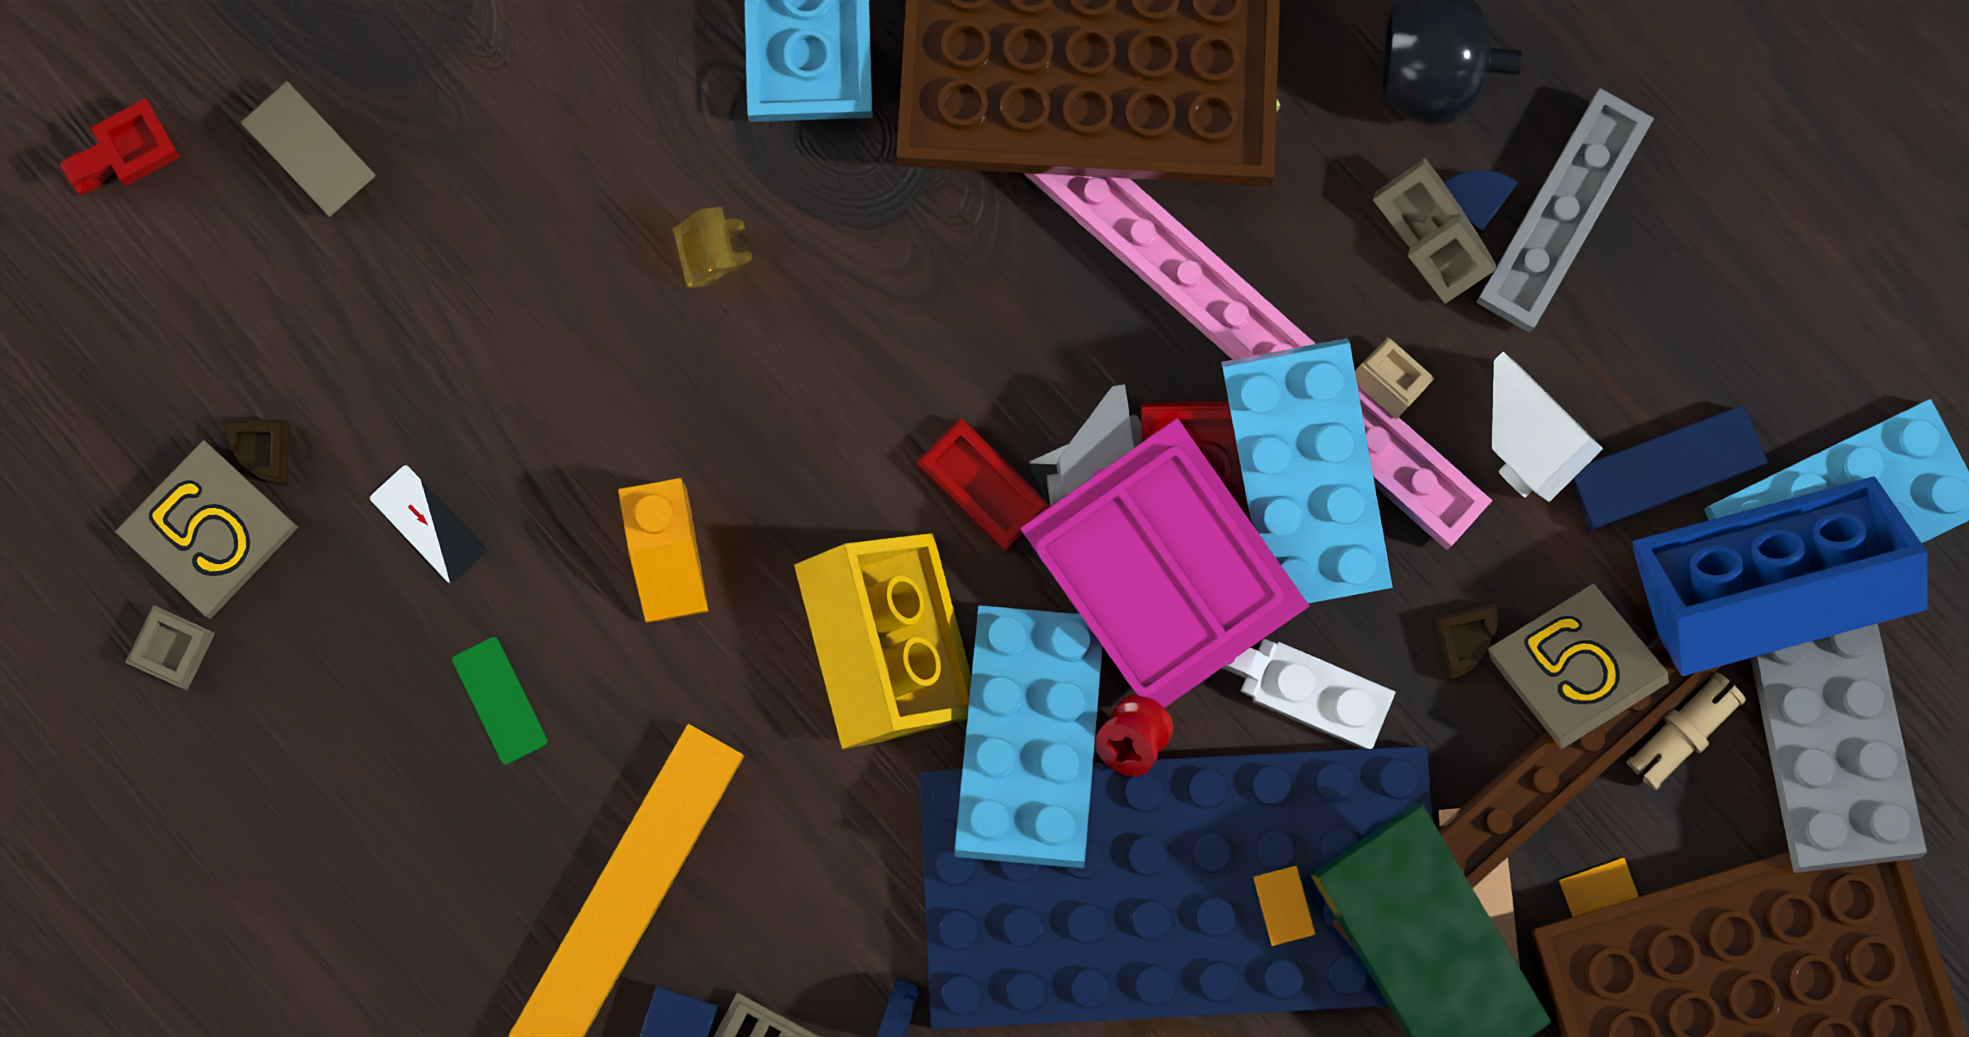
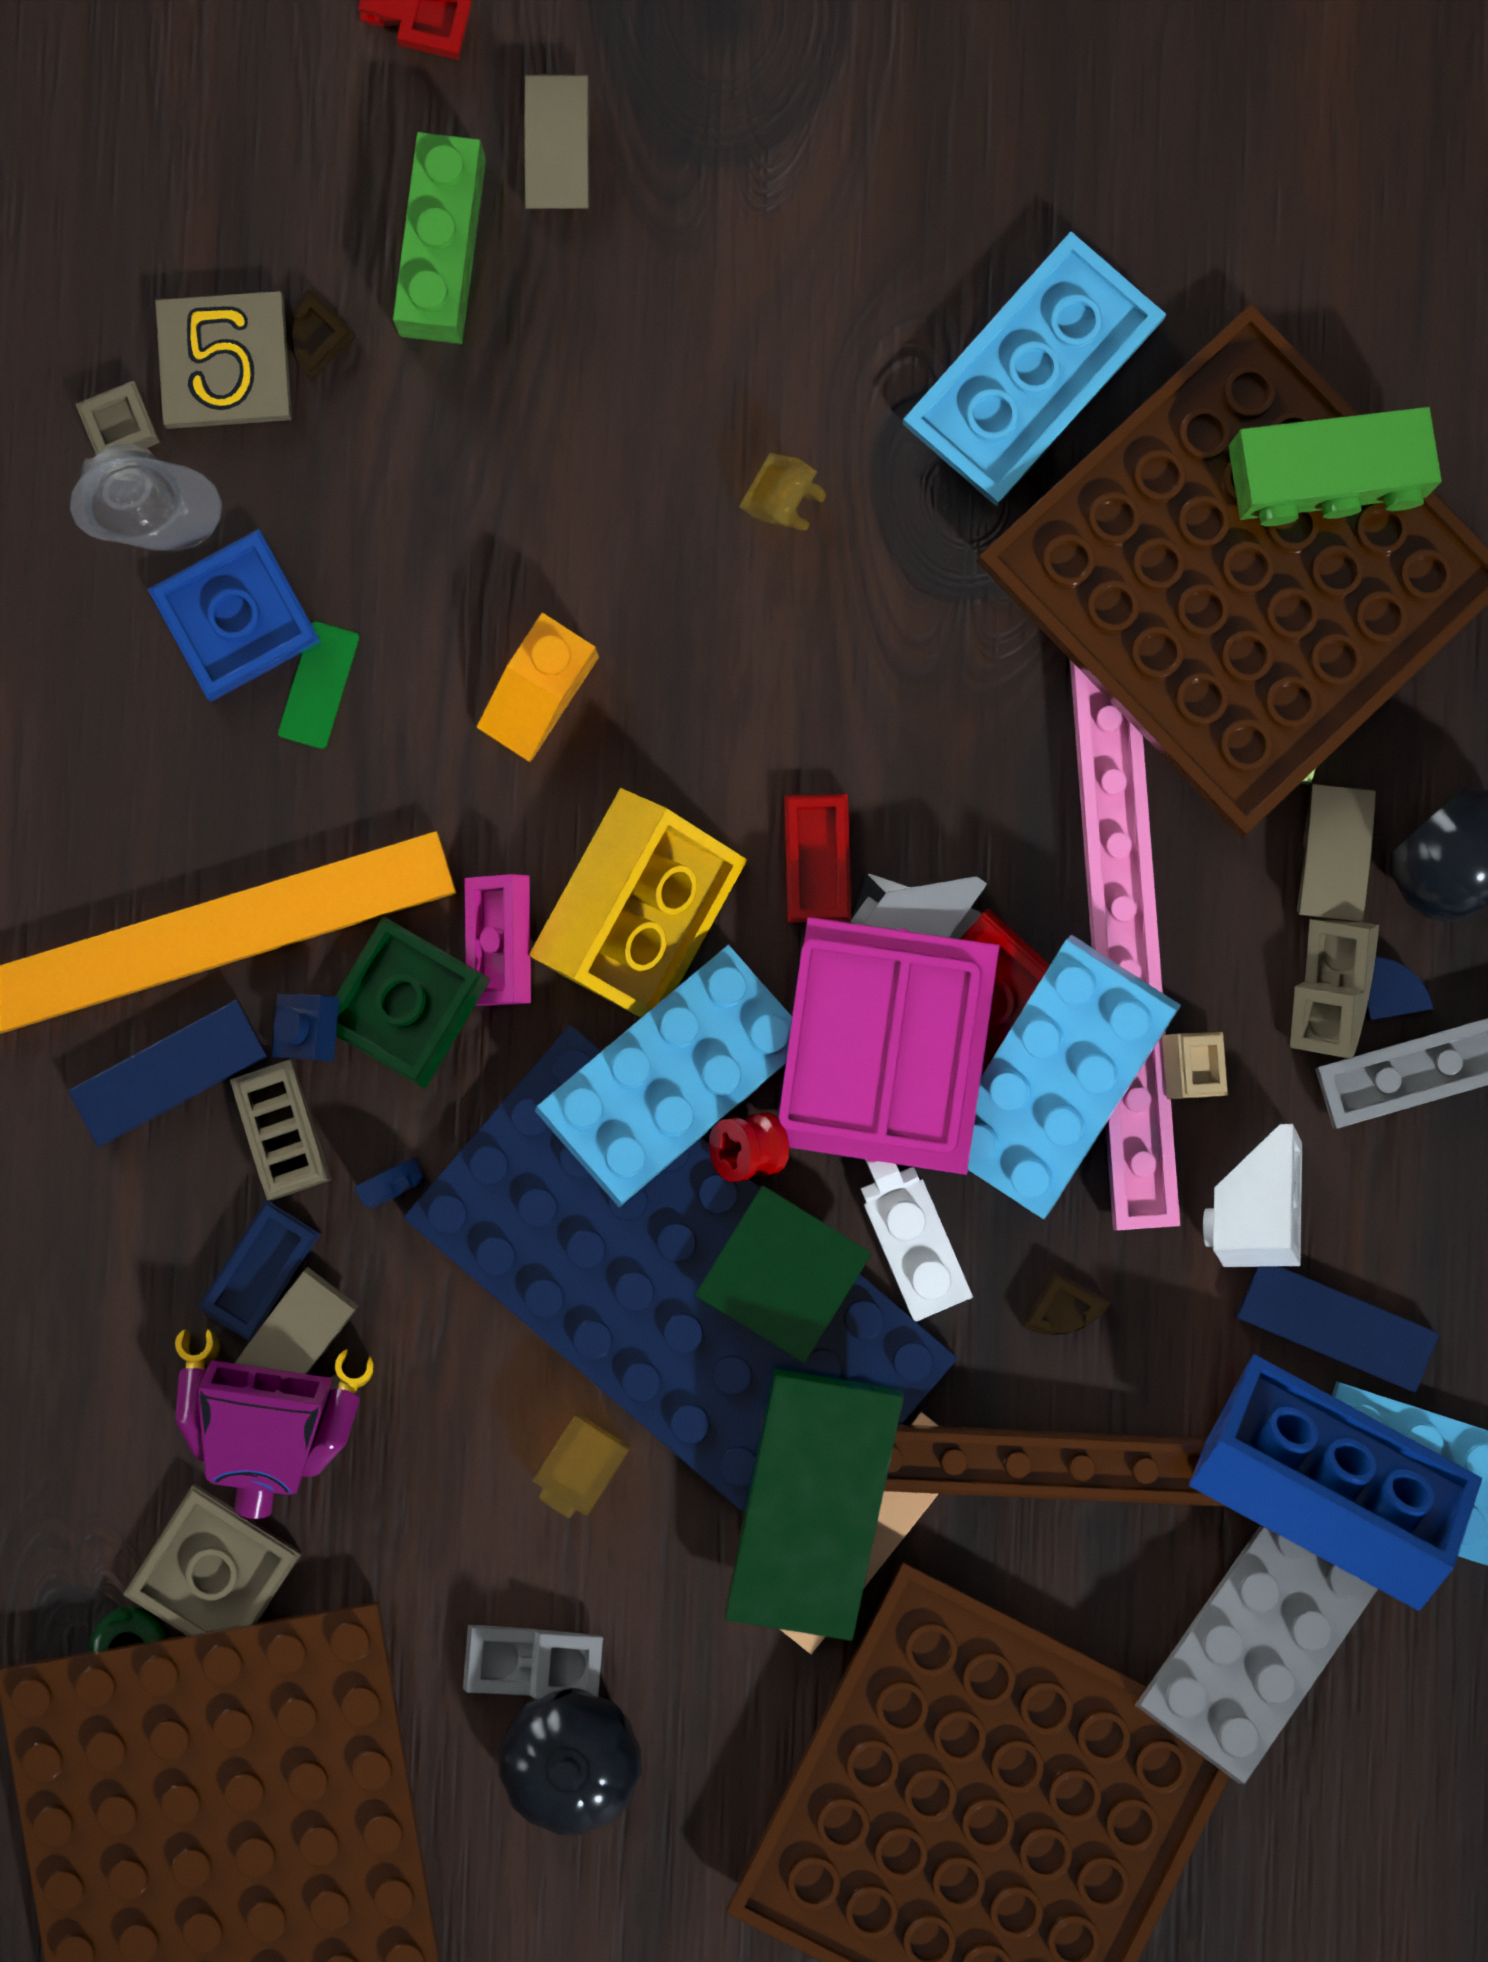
camera: 55 degrees right, 5 degrees up
(243, 683) = (144, 501): none -> clear piece
(286, 293) = (439, 238): none -> bright green brick
(389, 707) = (234, 615): none -> blue tile
(427, 524) = (387, 505): sticker -> none
(727, 957) = (305, 1027): none -> dark blue plate
(782, 869) = (406, 1002): none -> dark green tile
(808, 759) = (499, 936): none -> dark pink plate
(1247, 803) = (783, 1274): none -> dark green tile
(1284, 905) = (740, 1372): light orange sticker -> none
(1345, 135) = (1337, 852): none -> dark tan slope
(1578, 666) = (1124, 1406): dark tan tile -> none
(1598, 887) = (986, 1580): light orange sticker -> none
(1686, 730) = (1159, 1528): tan pin -> none

